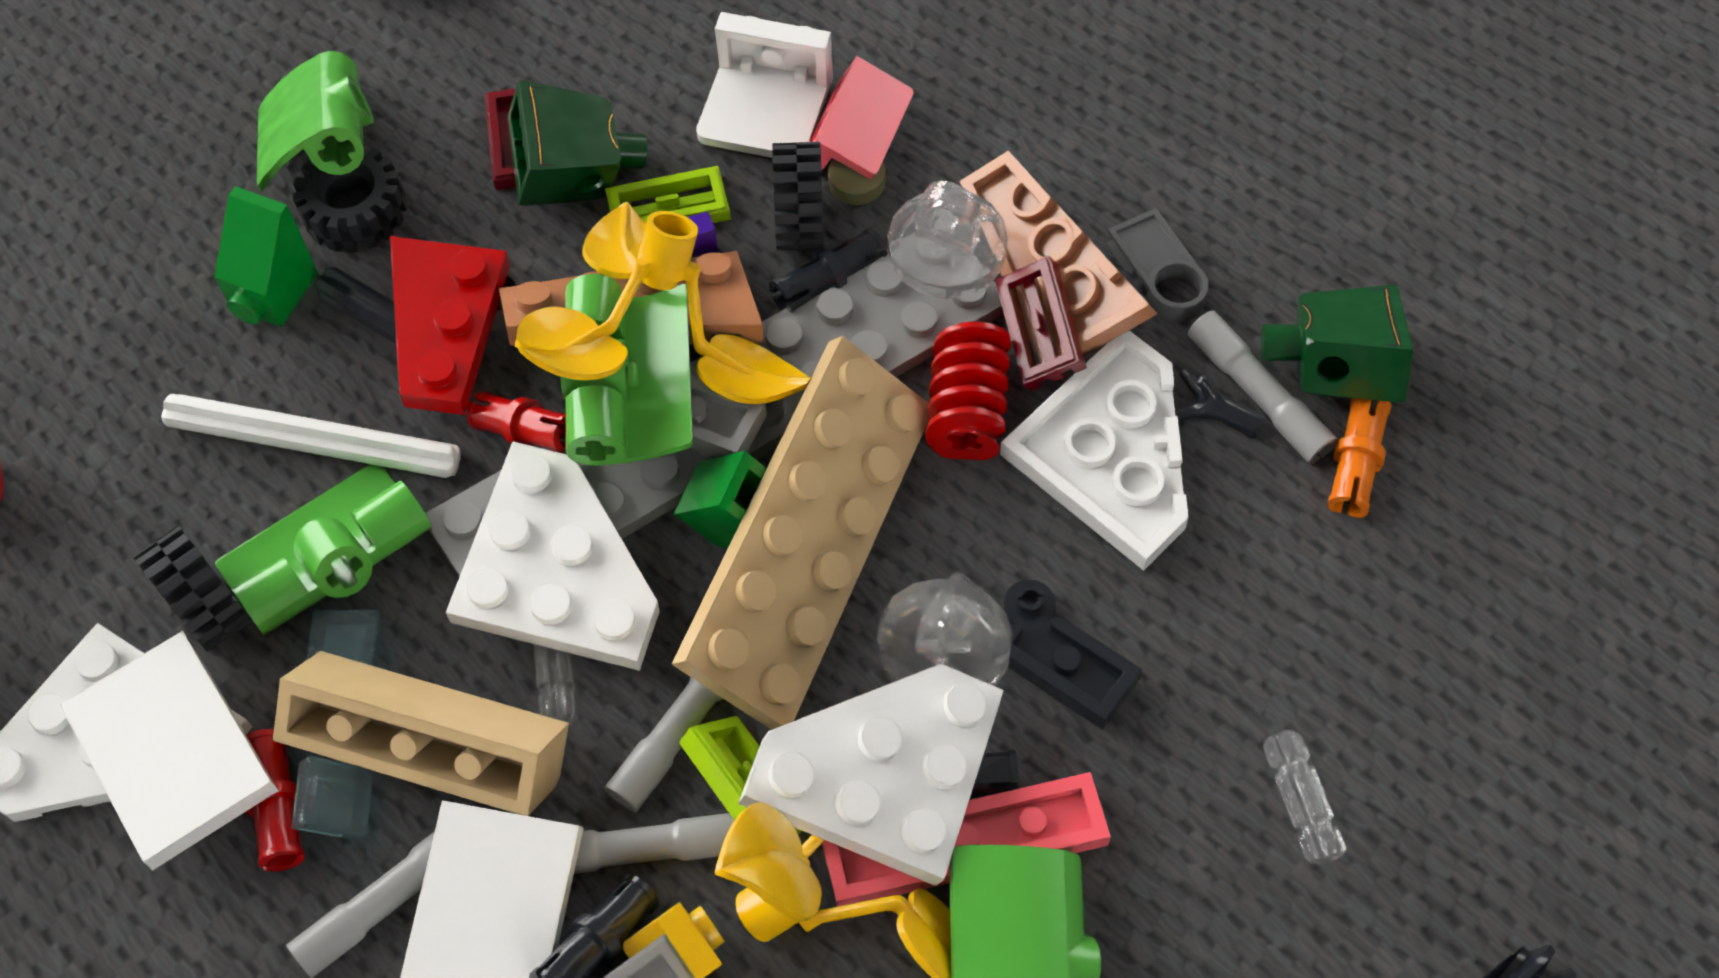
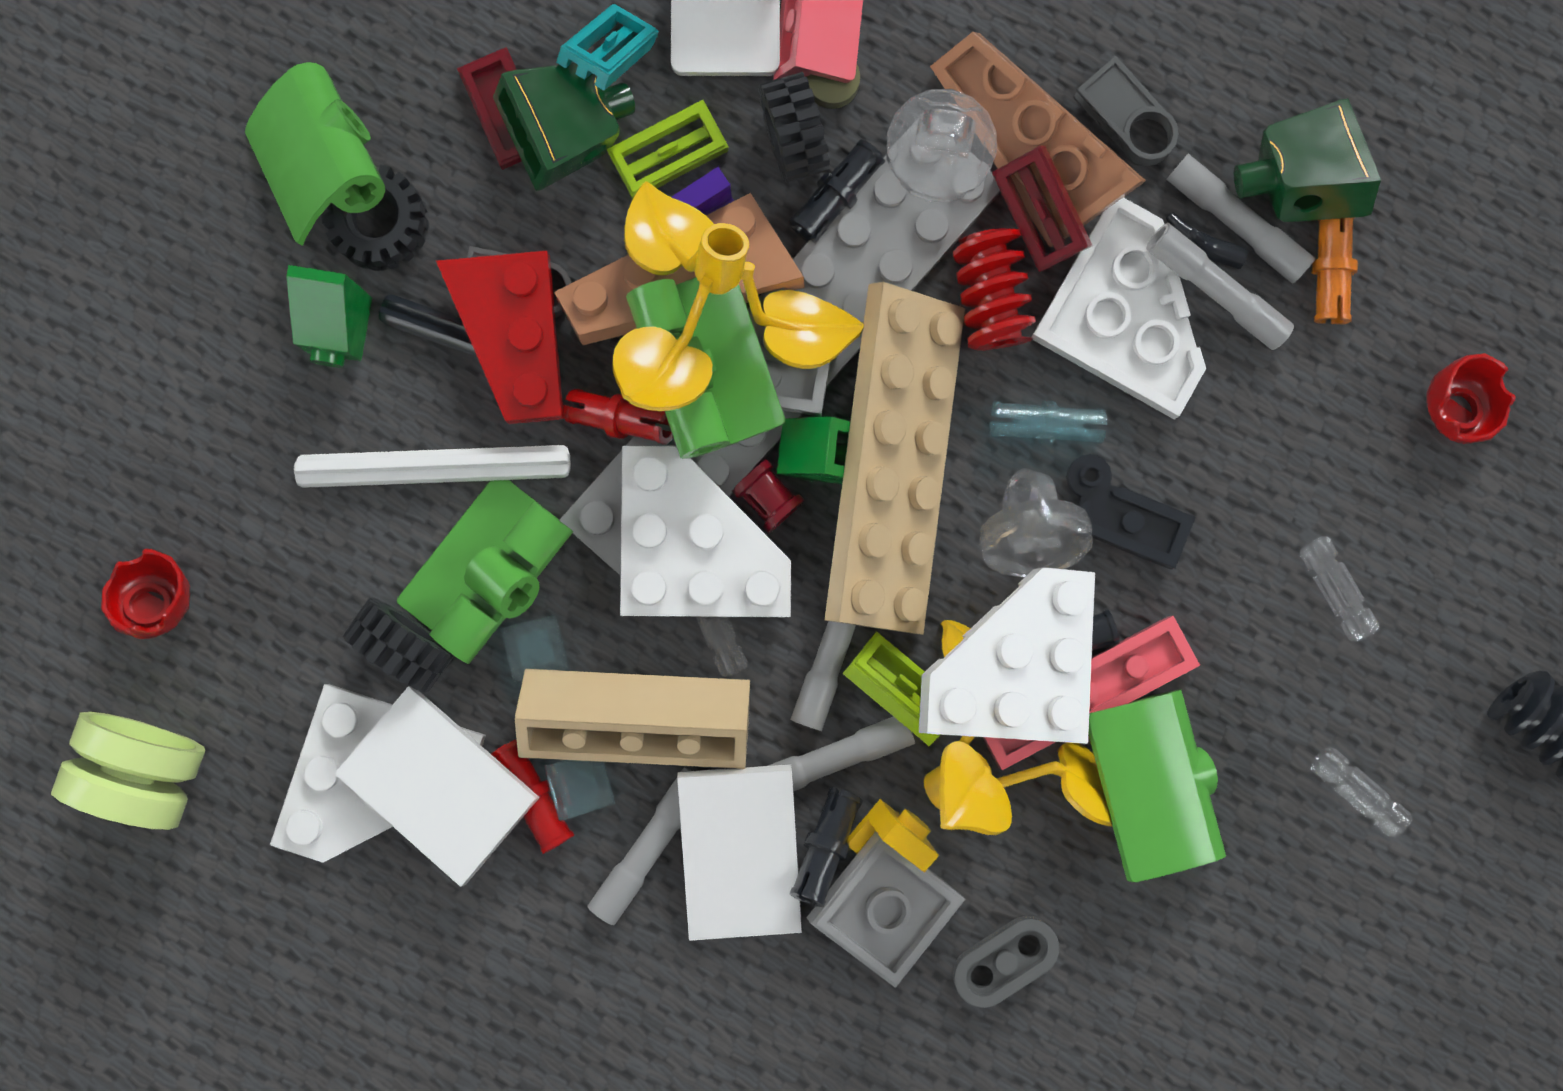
camera: 15 degrees left, 25 degrees up
(636, 94) = (596, 62): none -> teal tile
(658, 541) = (768, 496): none -> dark red bush
(995, 537) = (1048, 422): none -> clear light blue pin
(1194, 407) = (1194, 265): none -> light grey piece
(1507, 599) = (1481, 383): none -> red hair

